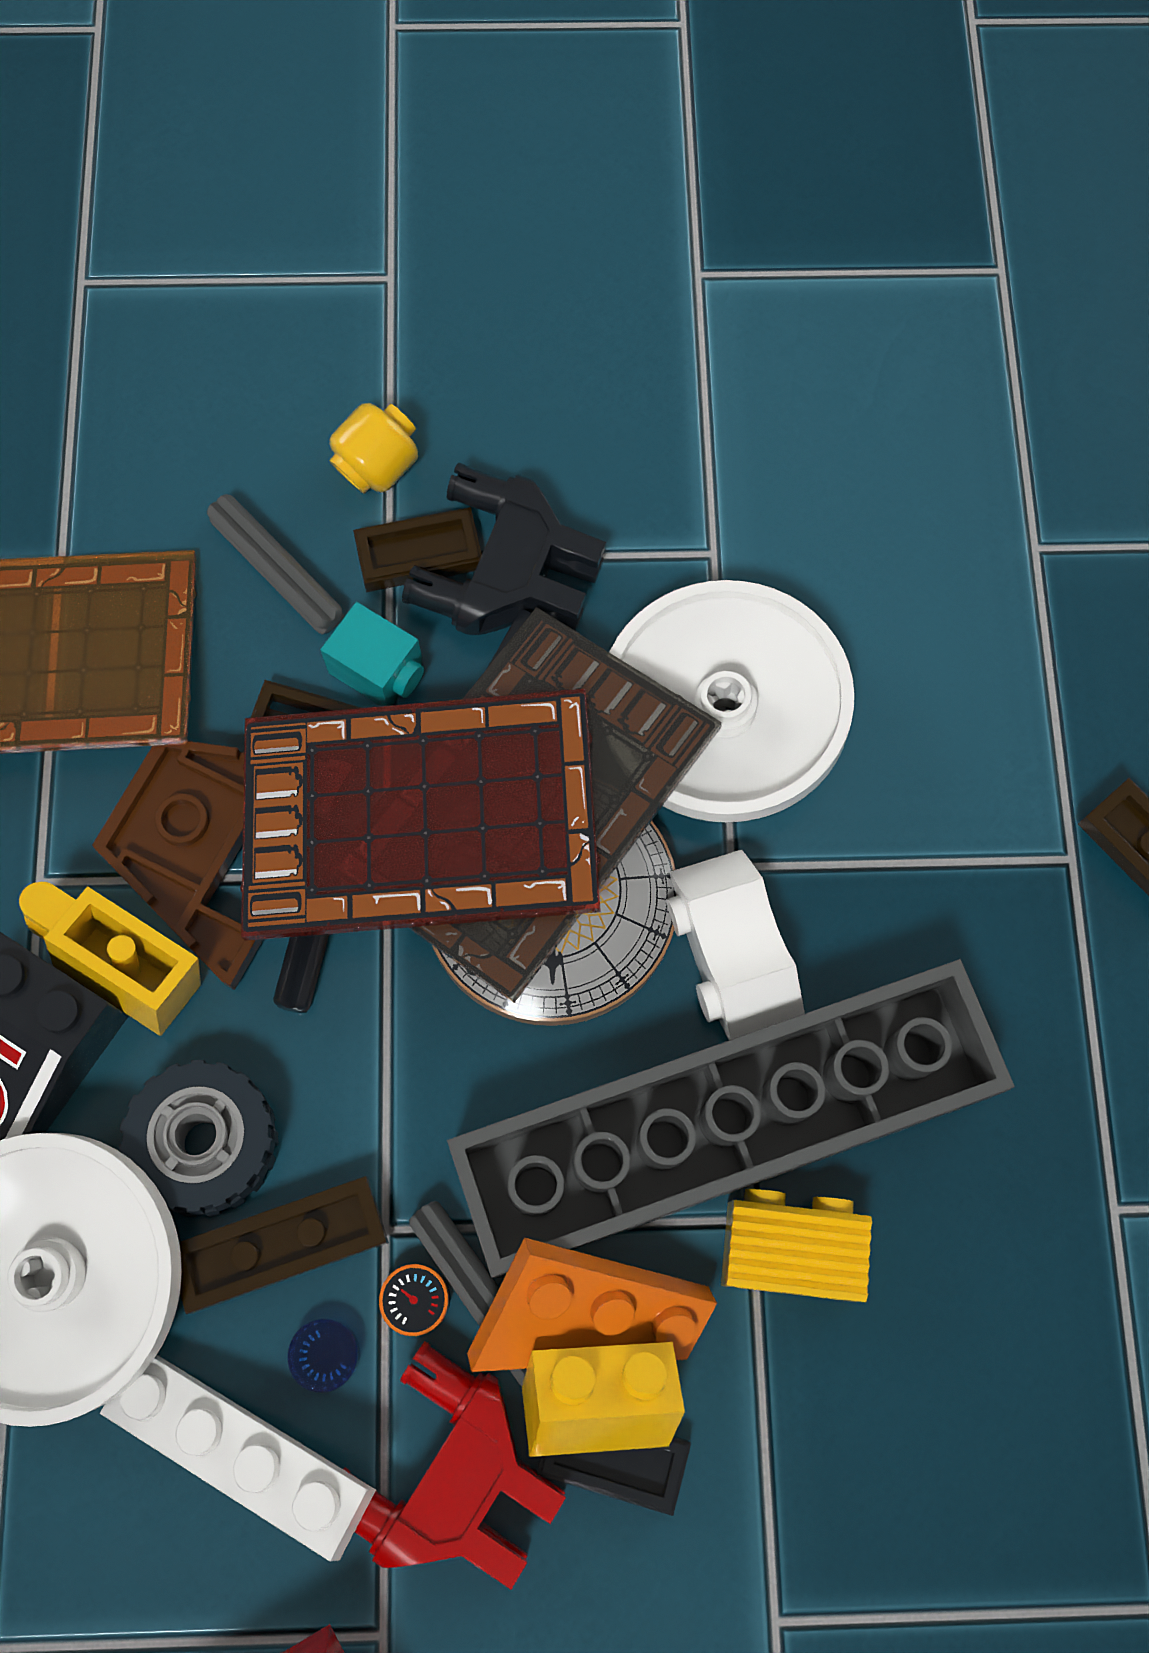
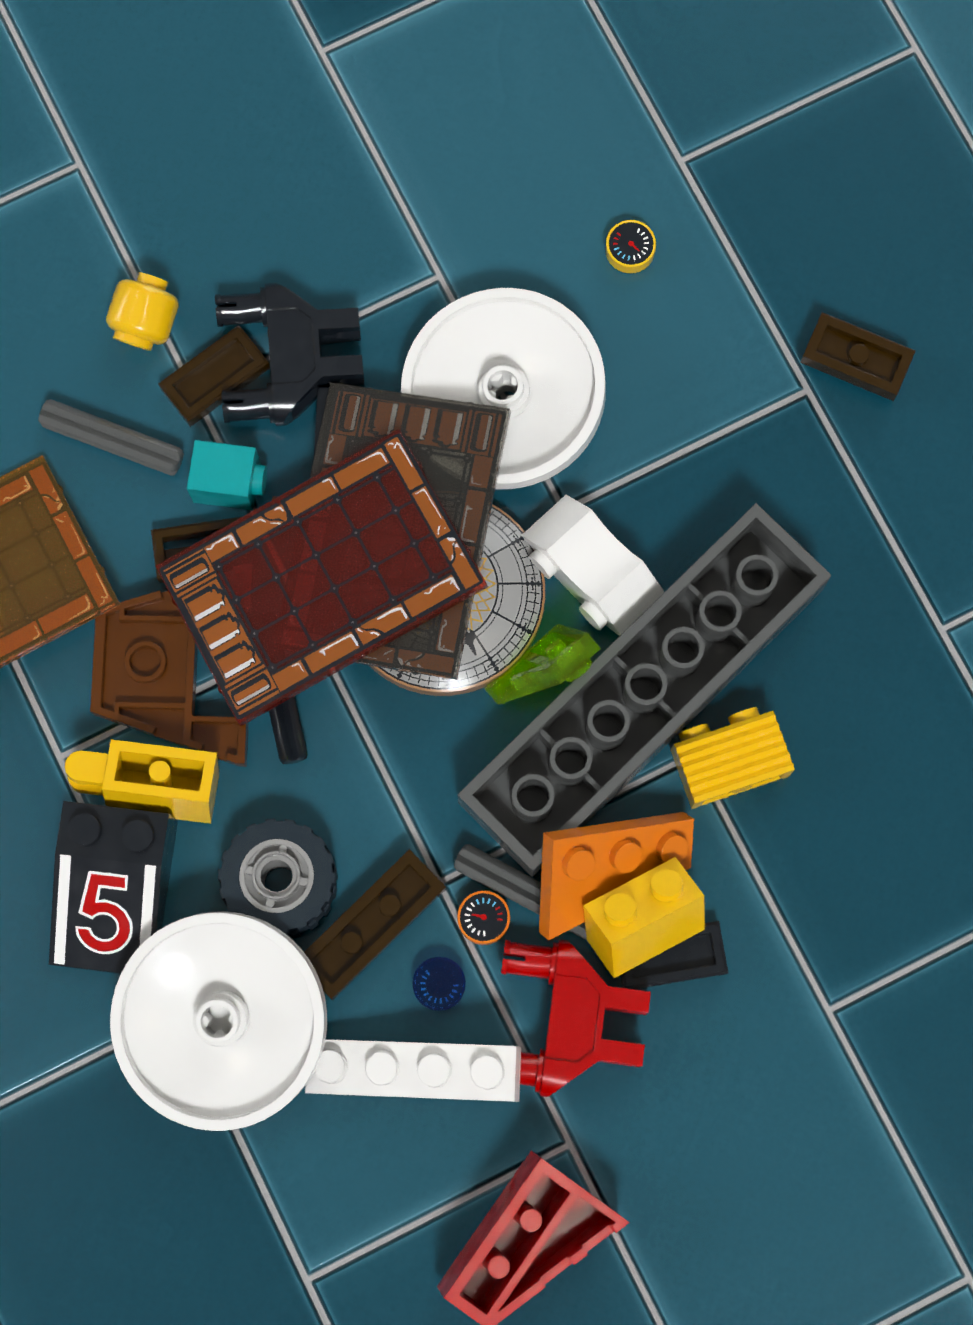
camera: 20 degrees left, 5 degrees up
(632, 1033) = (556, 657): none -> clear neon green wing
(939, 613) = (630, 246): none -> black tile

